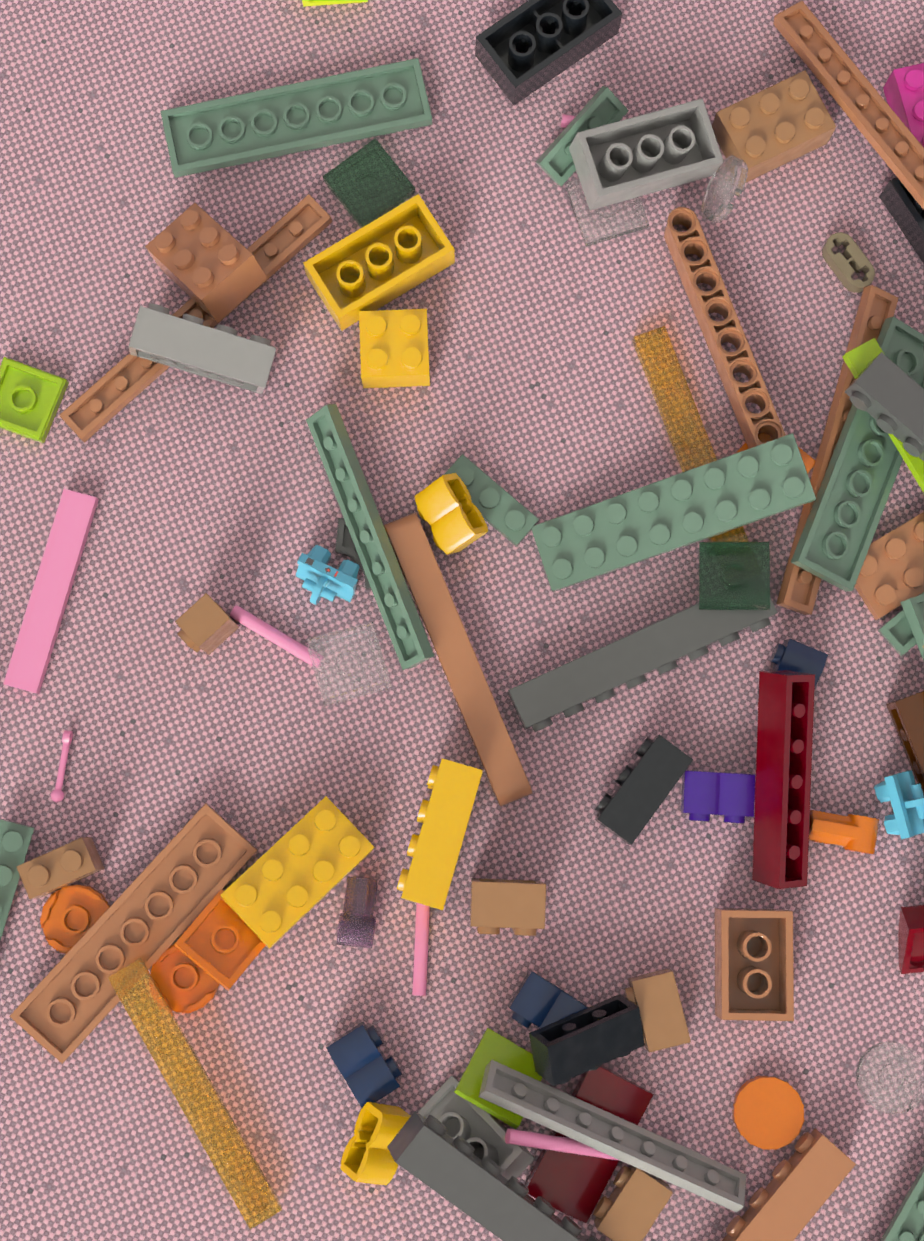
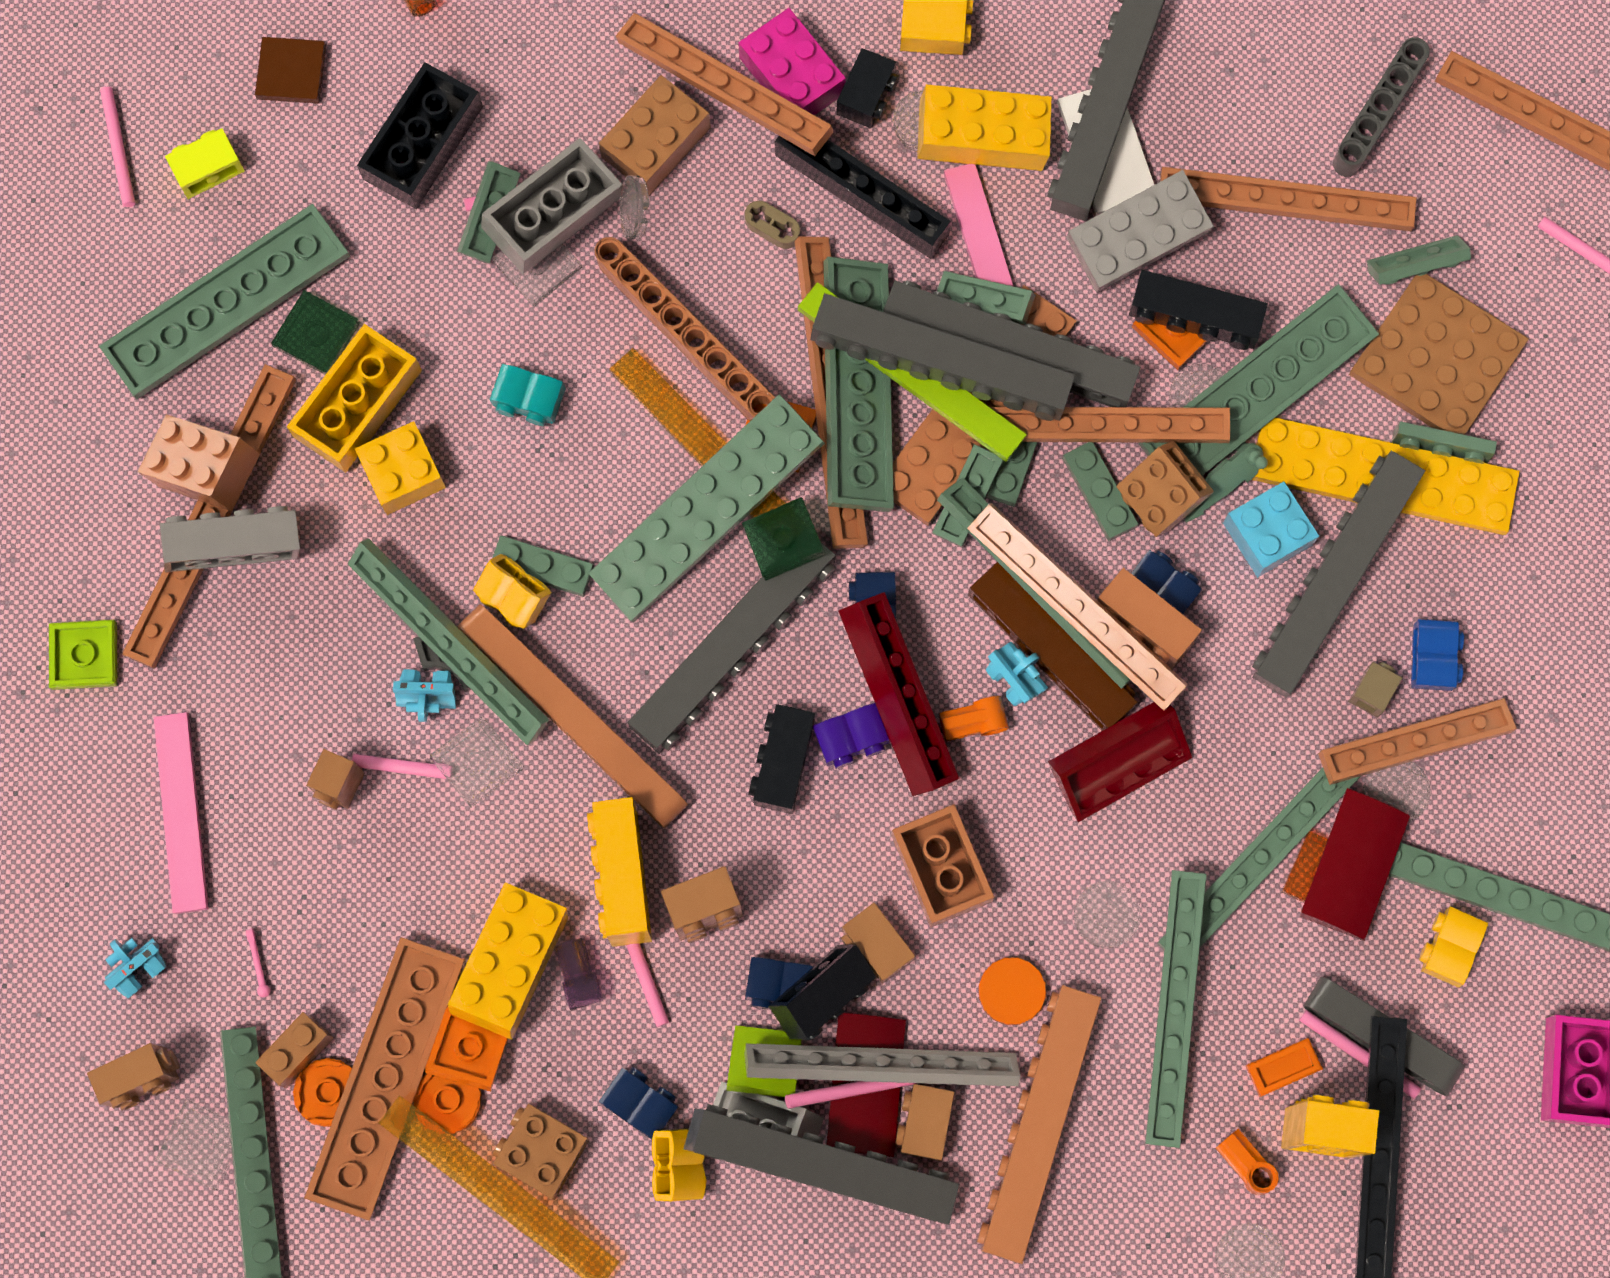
camera: 20 degrees left, 5 degrees down
(251, 1068) = (539, 1150): none -> medium nougat brick
(544, 328) = (527, 395): none -> teal brick

